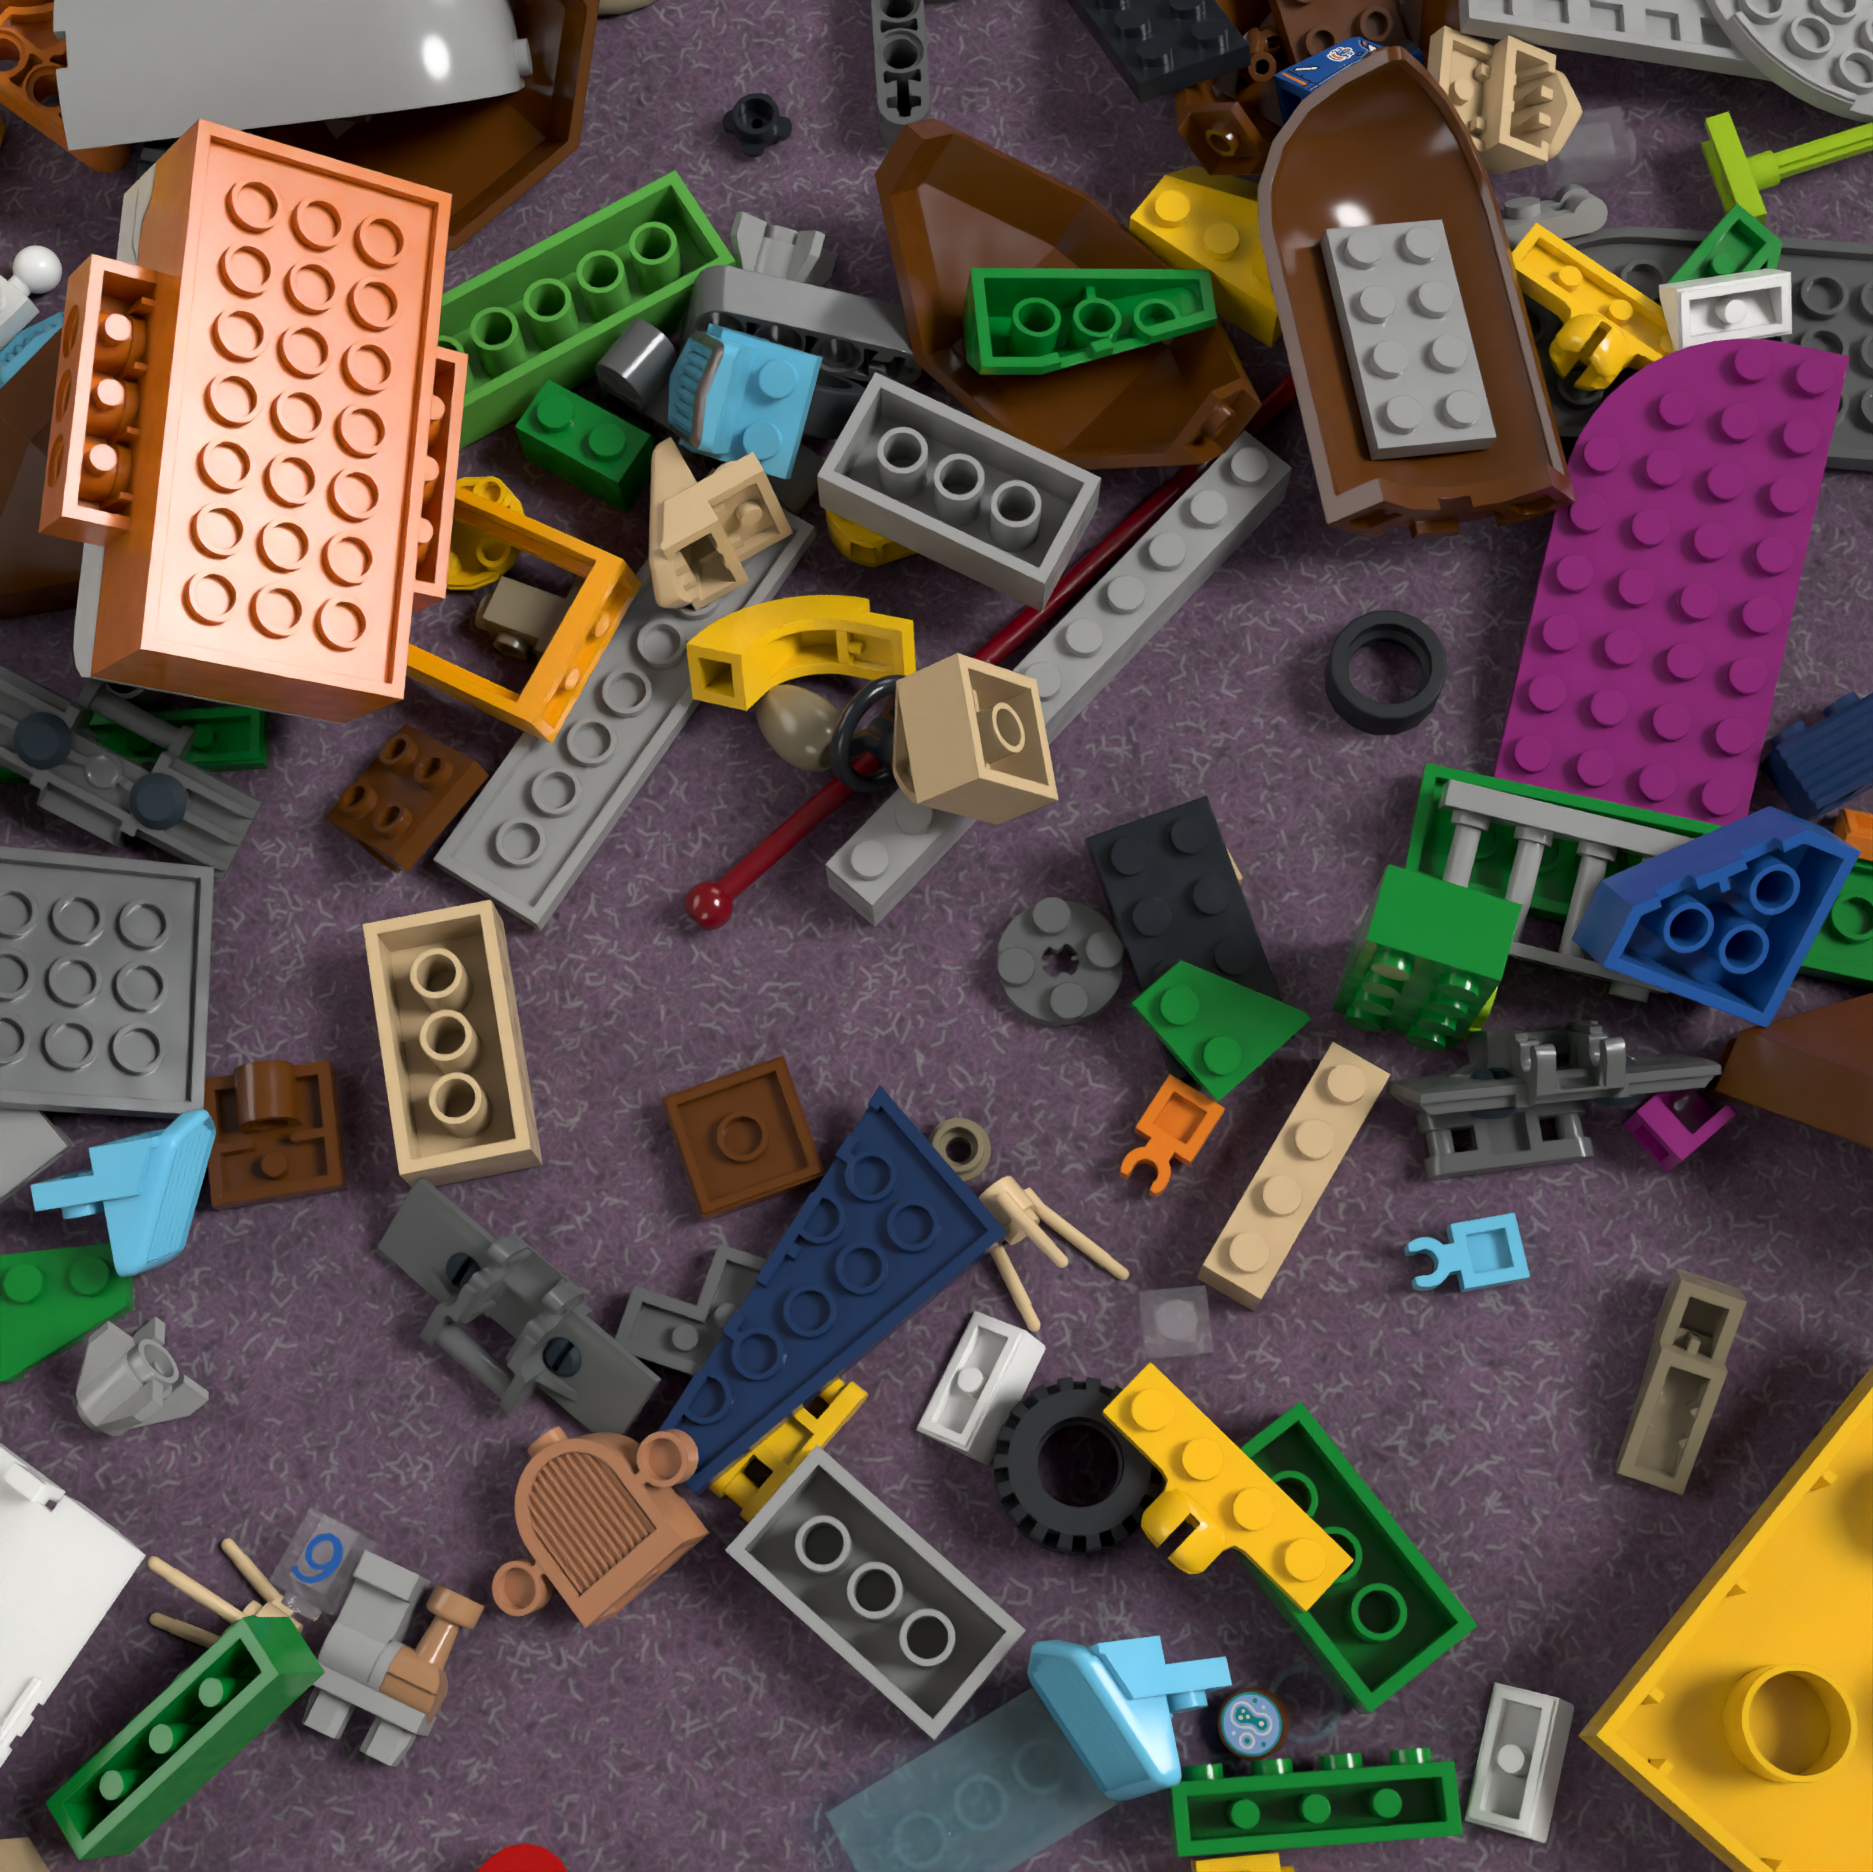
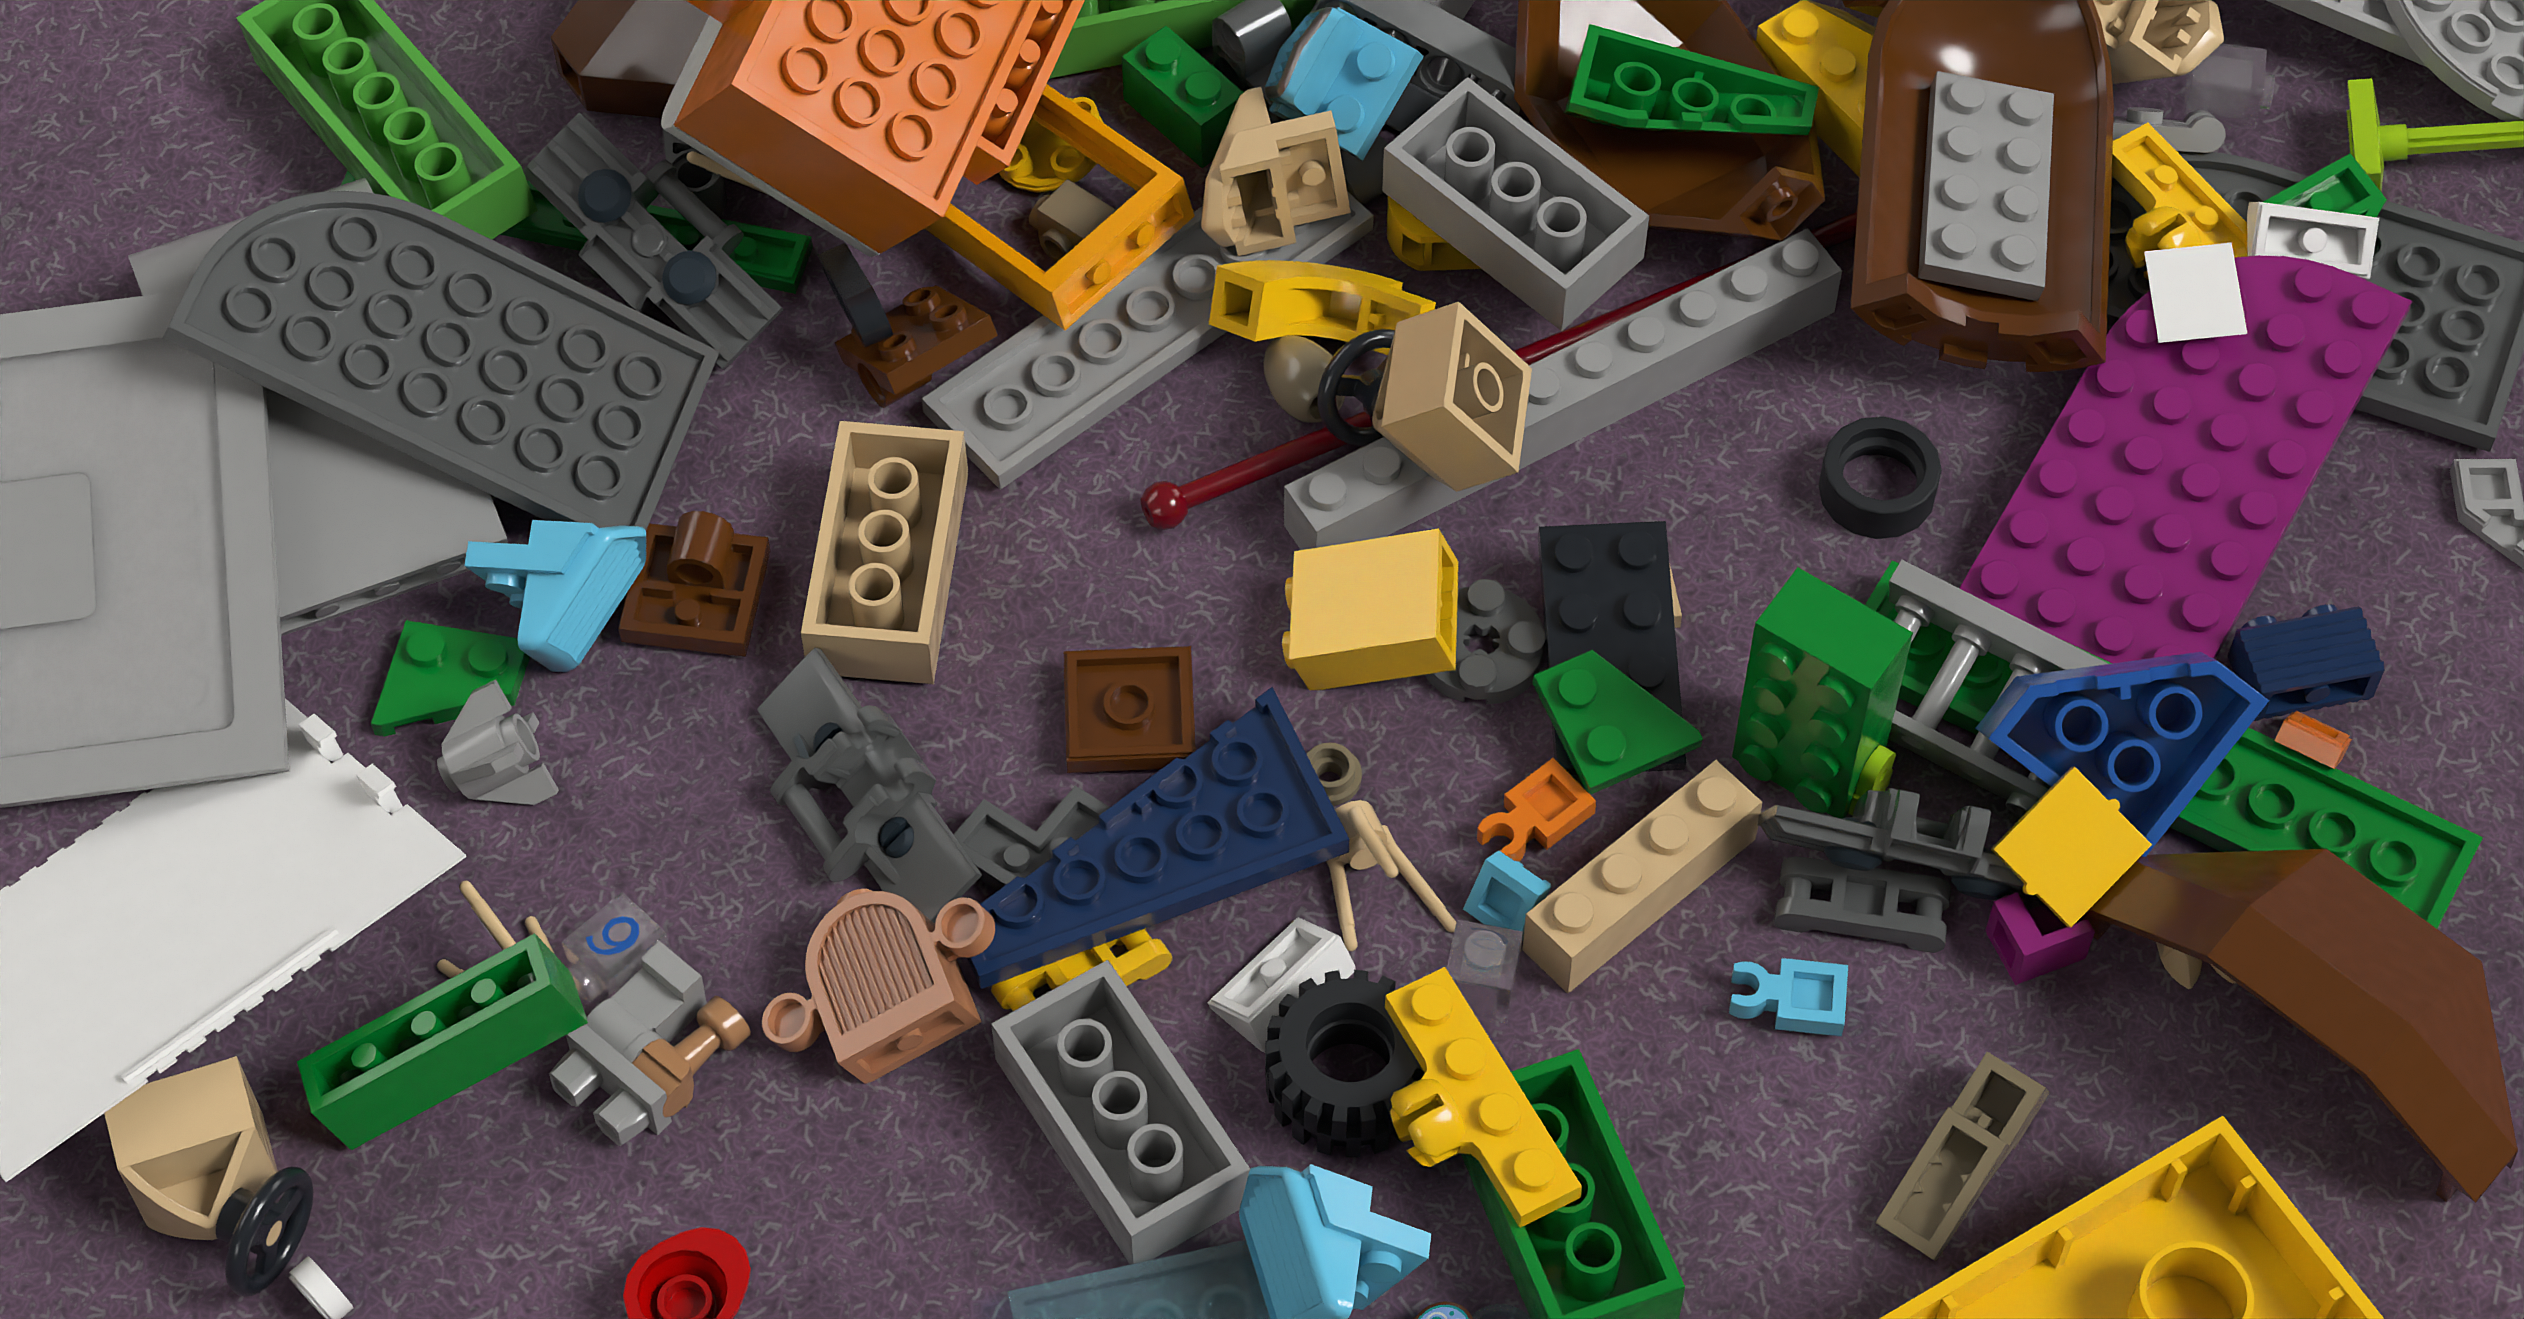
camera: 15 degrees right, 15 degrees down
(332, 771) = (855, 295): none -> black beam
(950, 969) = (1372, 610): none -> yellow brick
(1172, 1235) = (1505, 893): none -> medium azure tile
(1643, 405) = (2195, 292): none -> white sticker
(1702, 1044) = (2071, 847): none -> yellow piece

